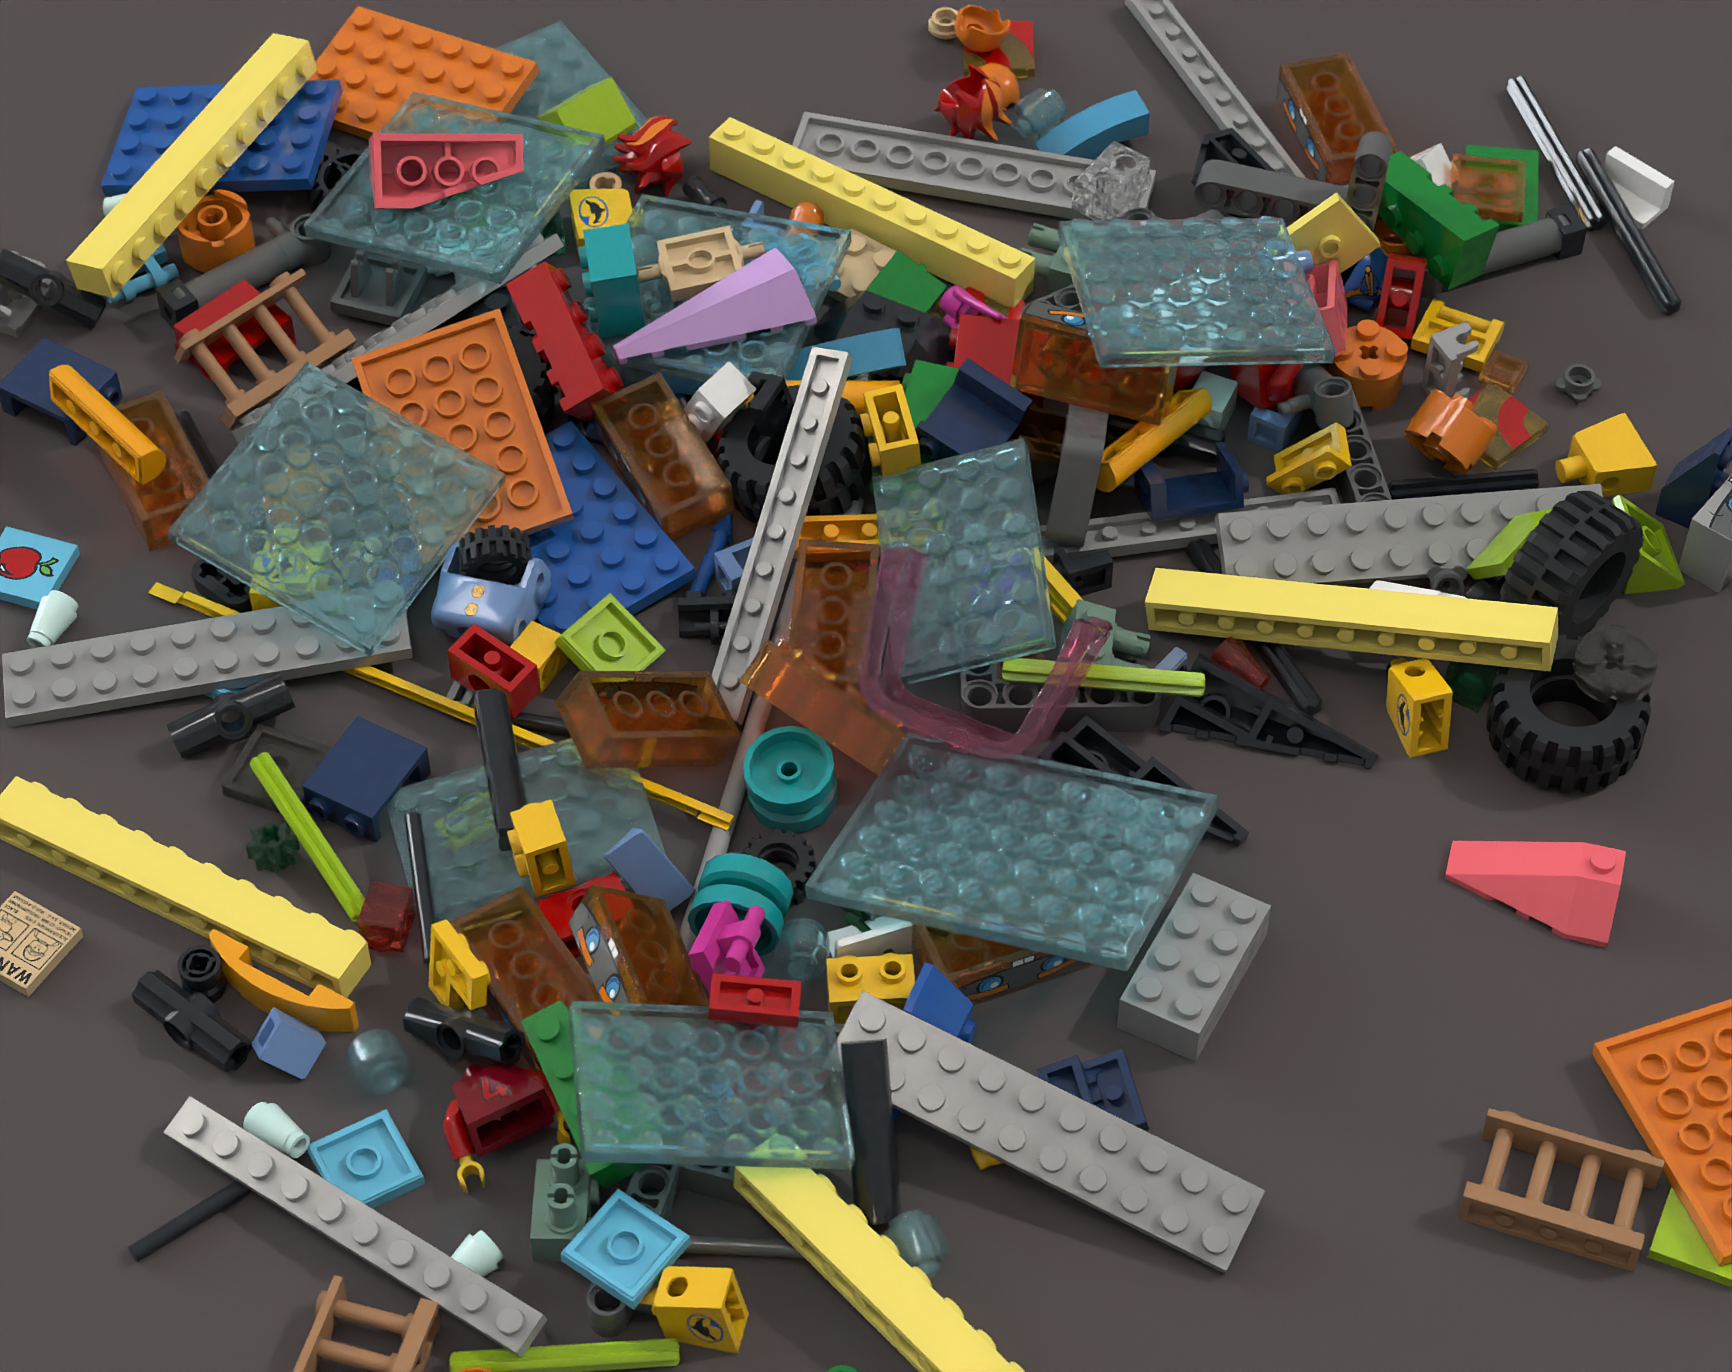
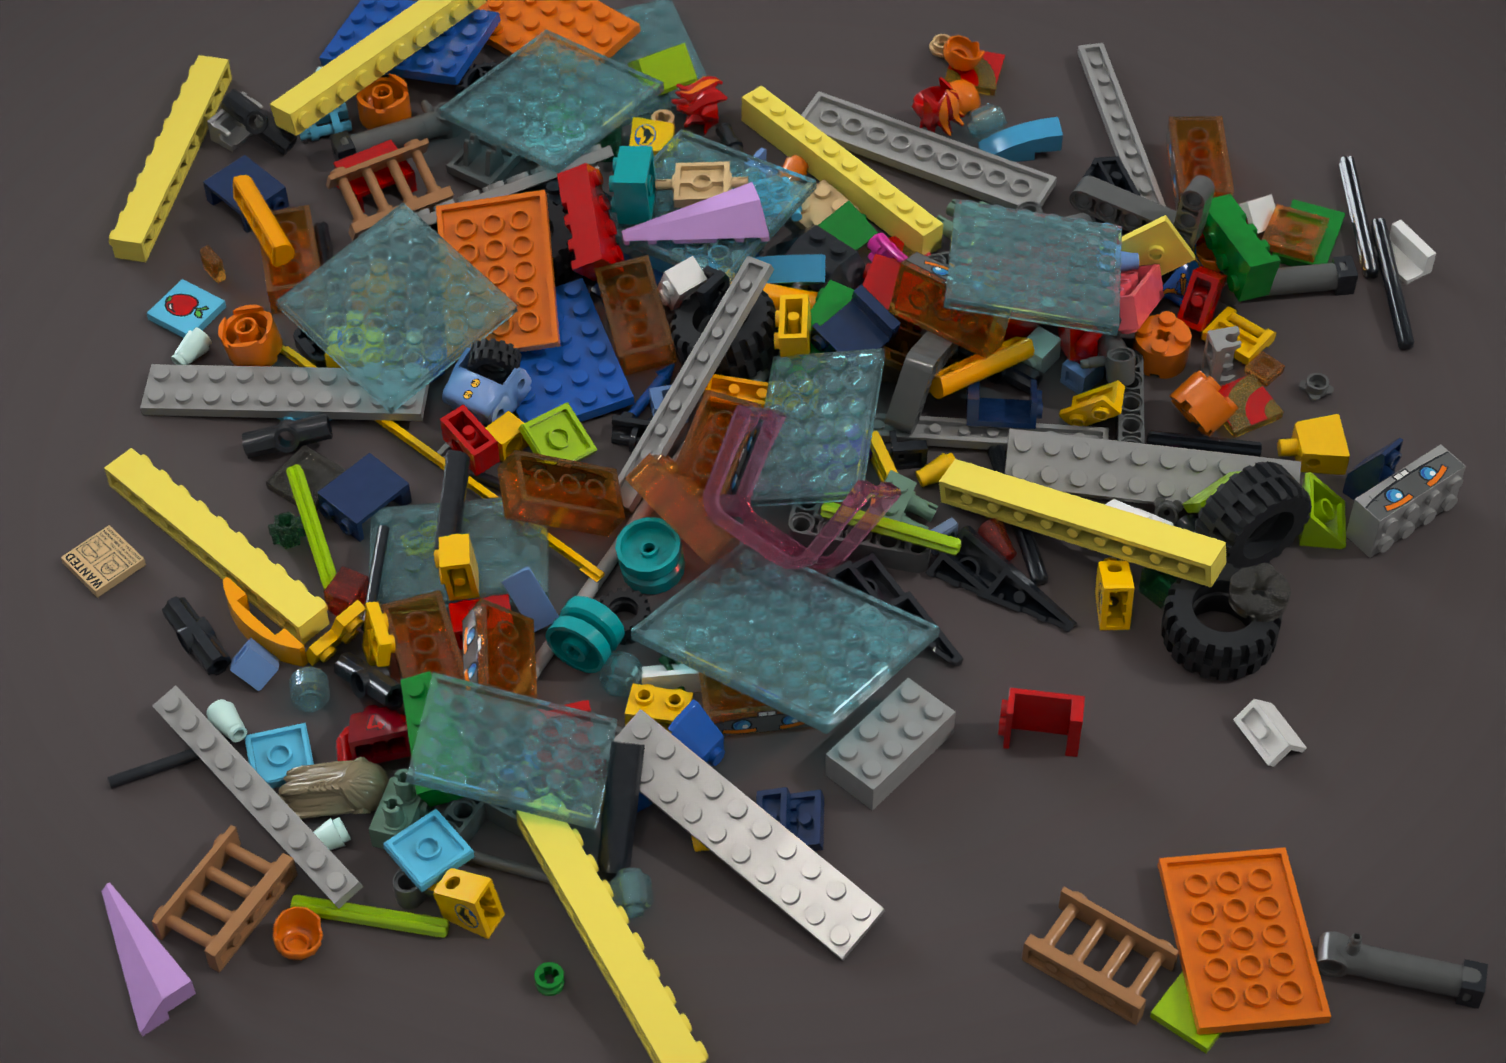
camera: 15 degrees right, 0 degrees up
(44, 497) = (212, 264): none -> clear orange tile
(135, 588) = (250, 337): none -> orange brick
(202, 972) = (212, 605): black wheel -> none
(400, 971) = (343, 629): none -> yellow plate
(428, 167) = (536, 83): coral wedge -> none
(461, 1191) = (334, 788): none -> dark tan hair
(728, 944) = (560, 666): dark pink plate -> none
(754, 1000) = (561, 699): red panel -> none
(1111, 183) = (1017, 180): clear brick -> none
(1130, 587) = (935, 469): none -> yellow cone
(1388, 882) = (1043, 713): none -> red panel
(1554, 882) = (1171, 739): coral wedge -> none
(1671, 847) = (1268, 731): none -> white panel

